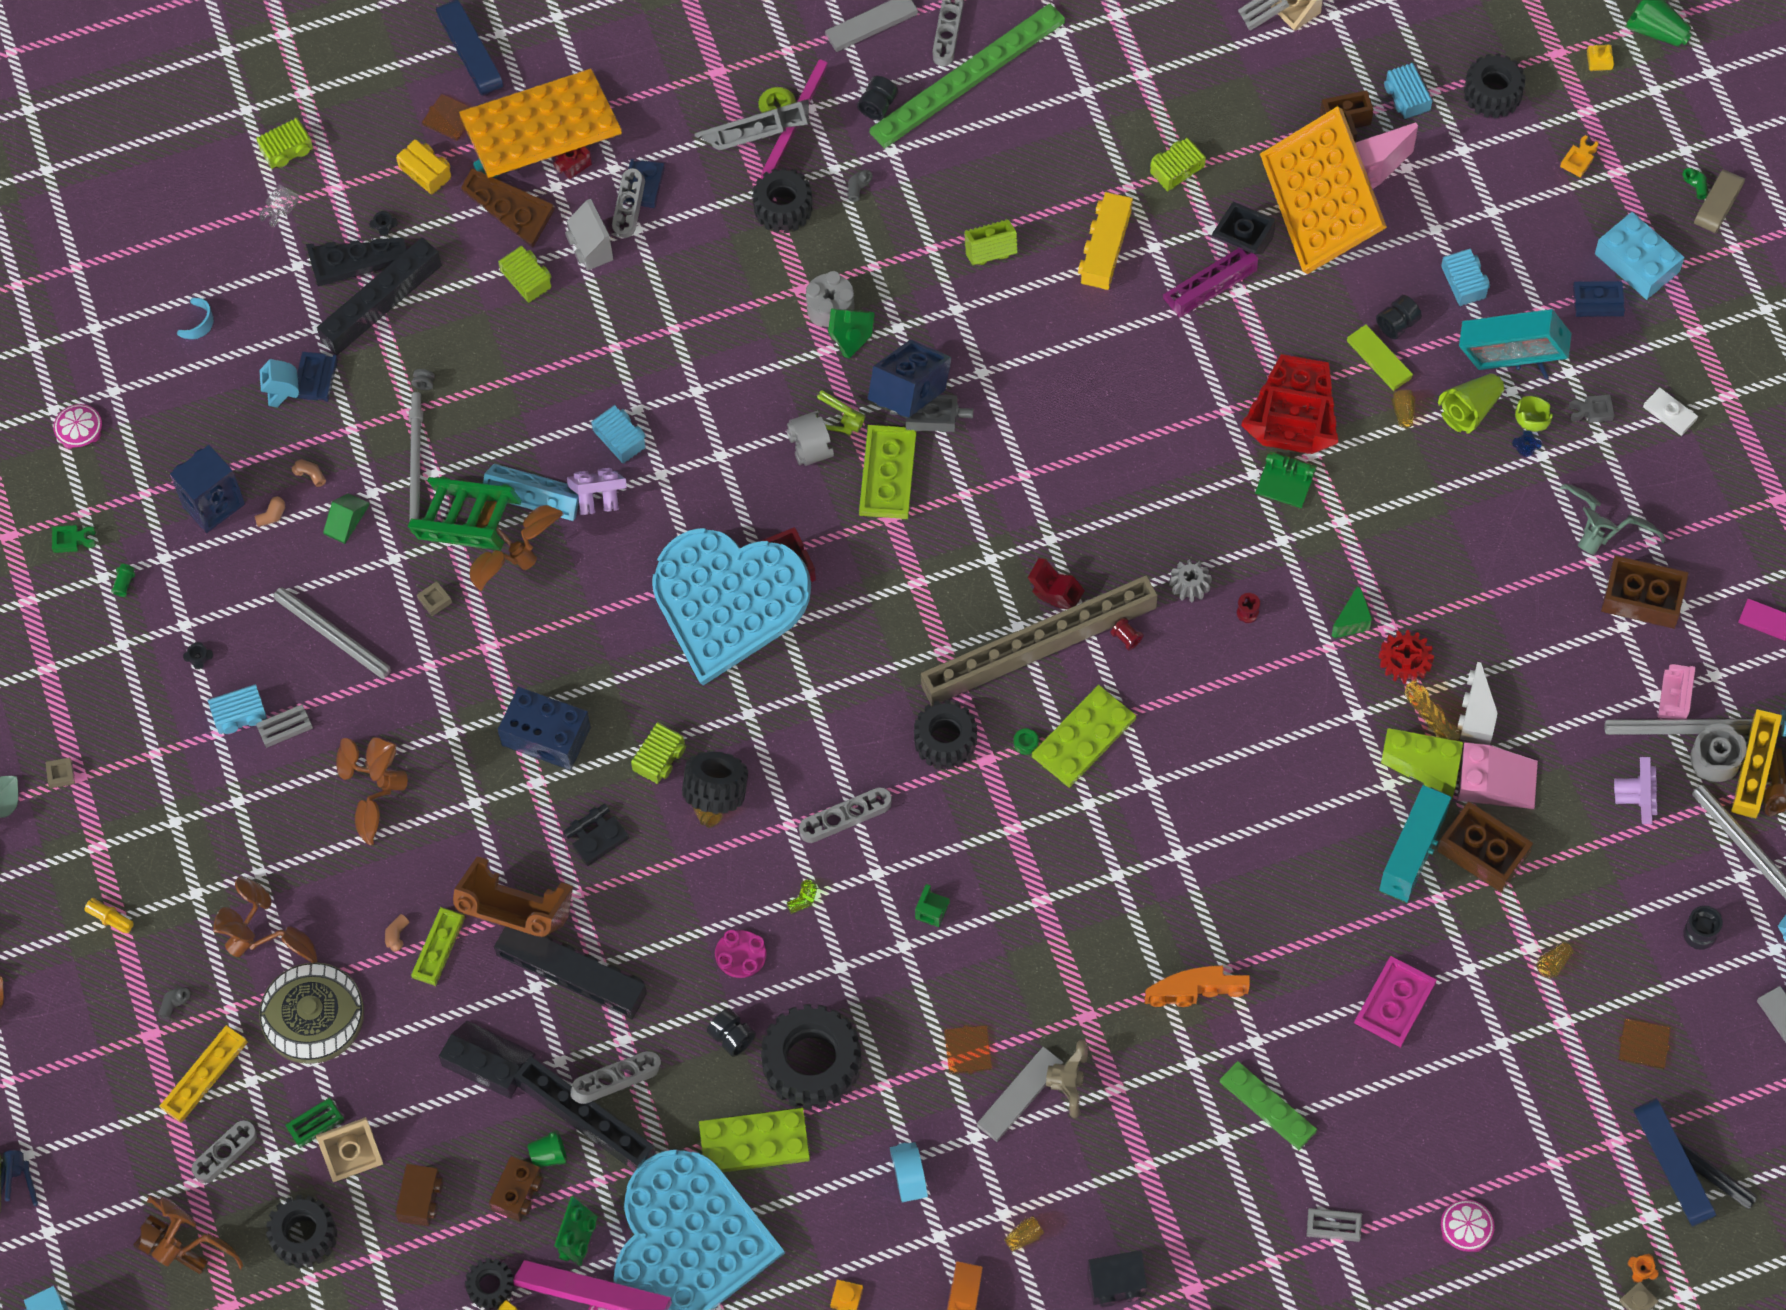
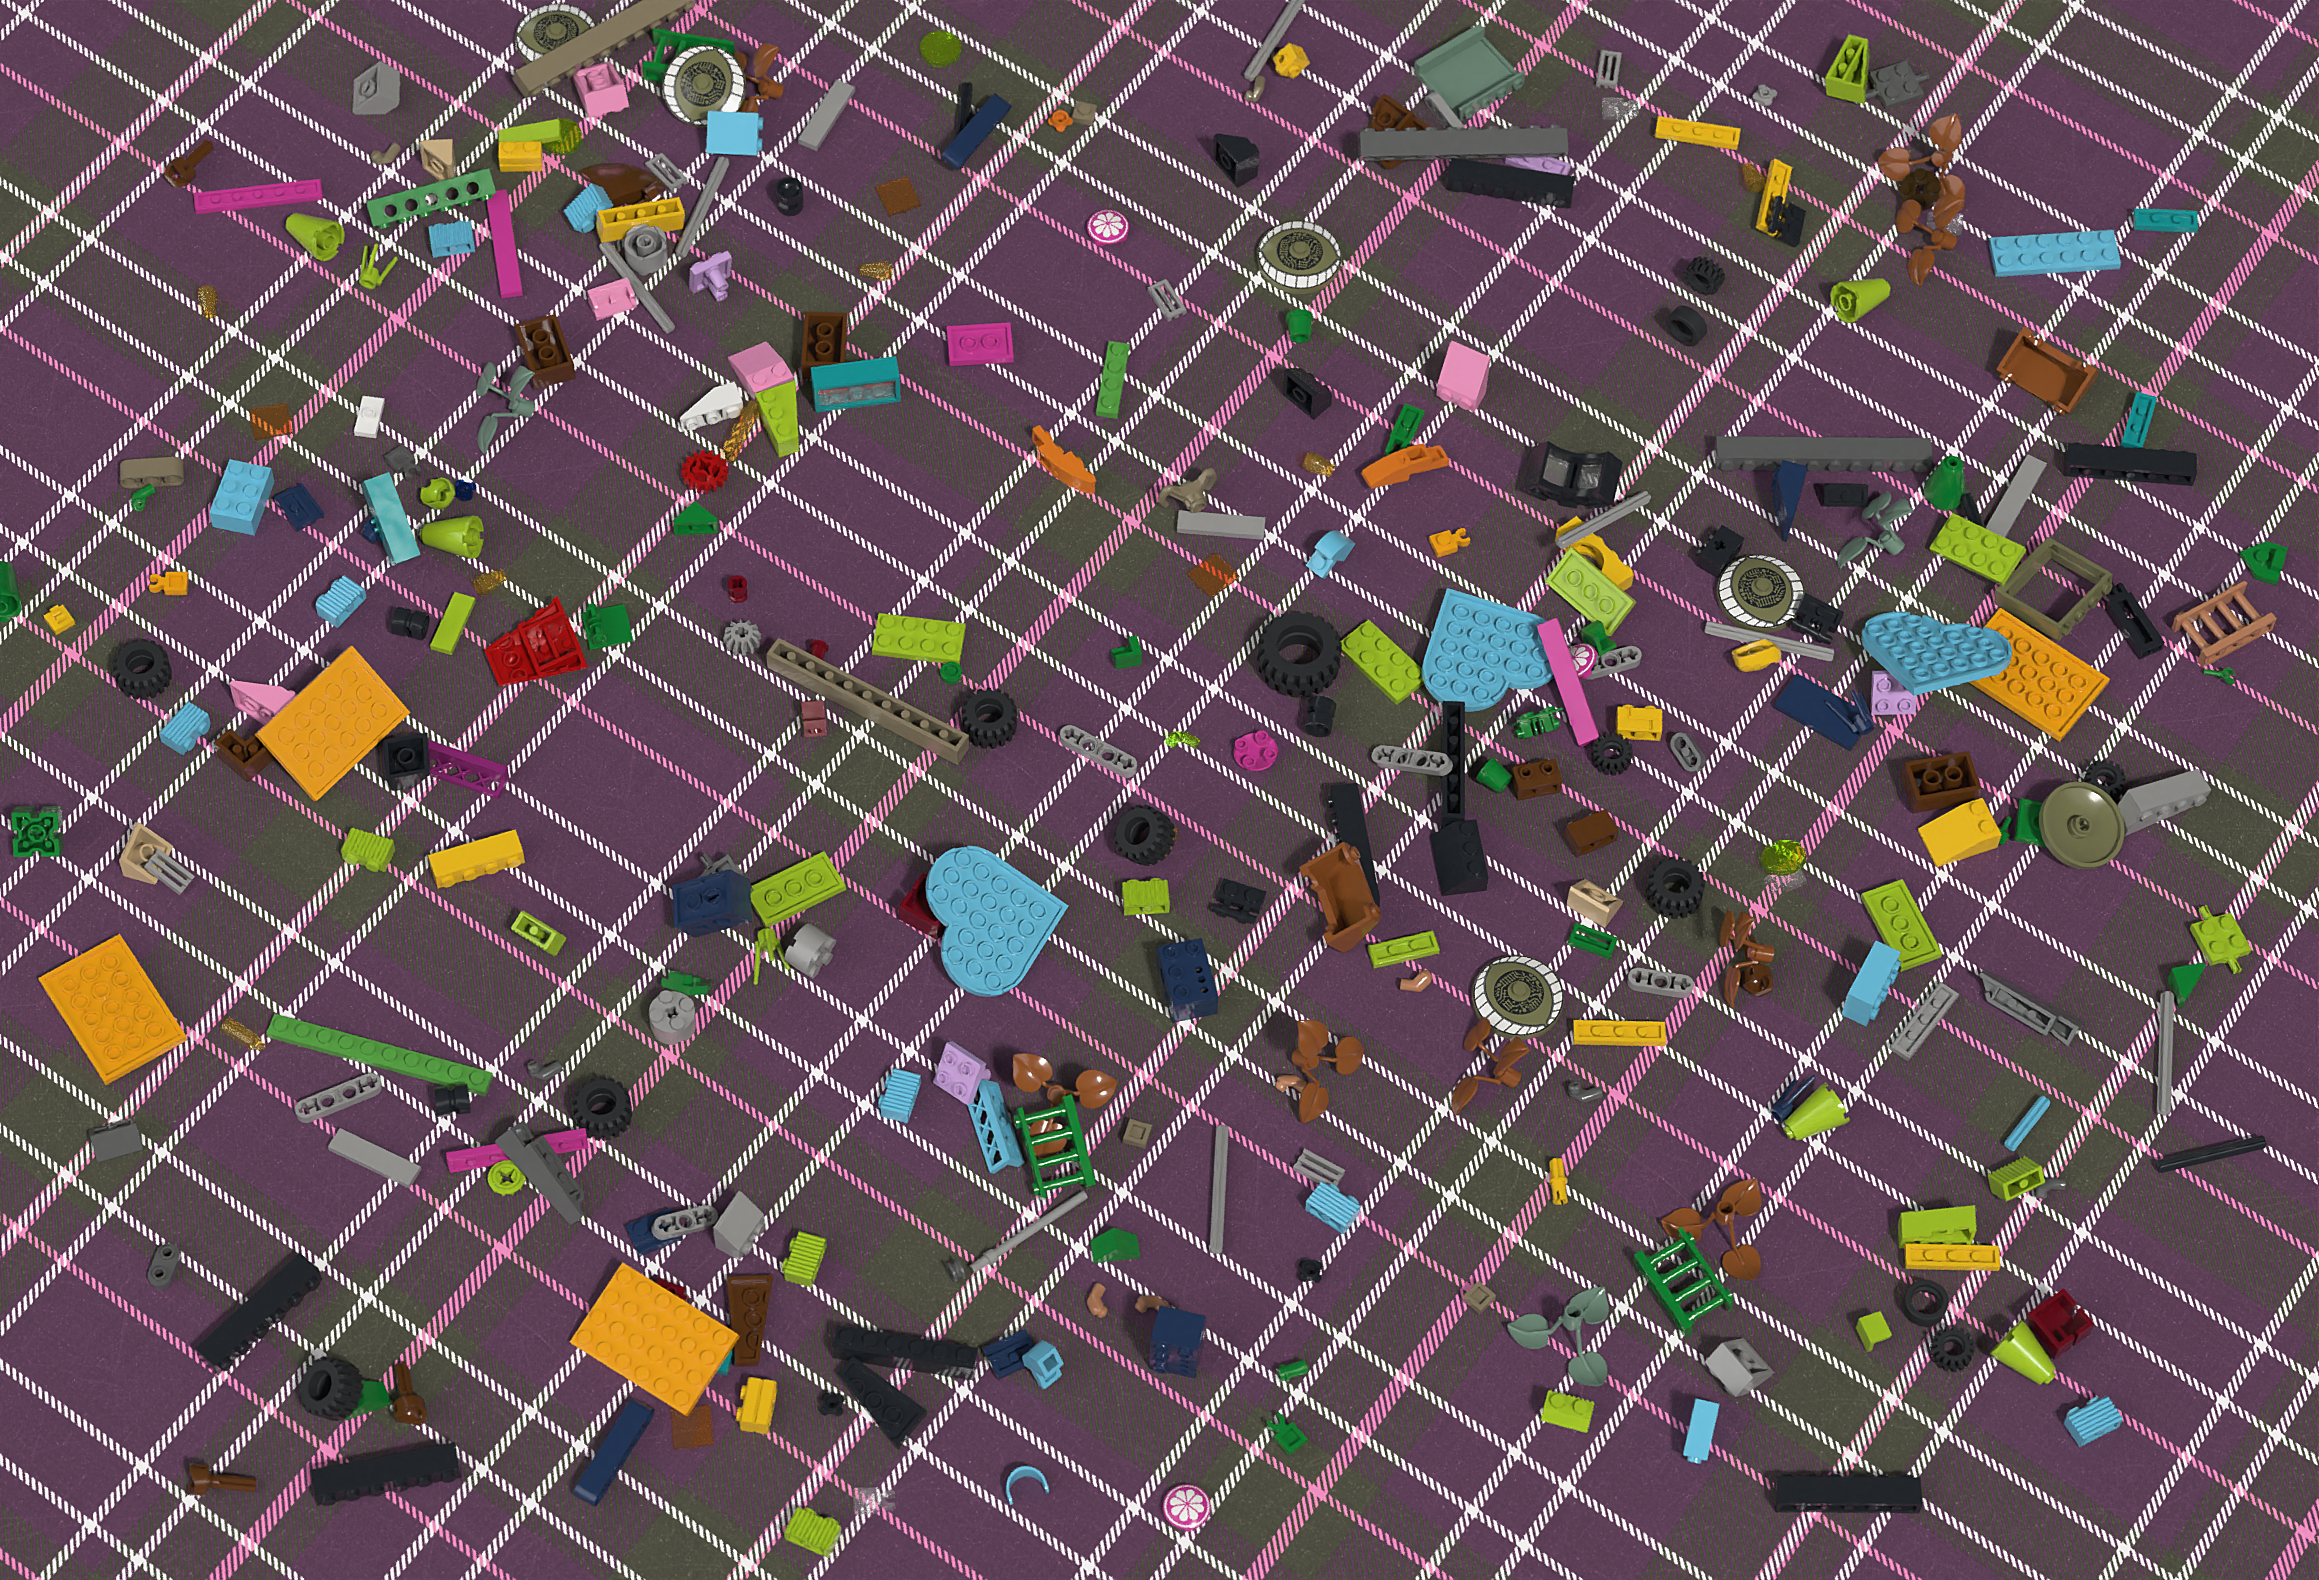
camera: 130 degrees left, 5 degrees down
(1720, 330) = (270, 421): none -> clear orange piece

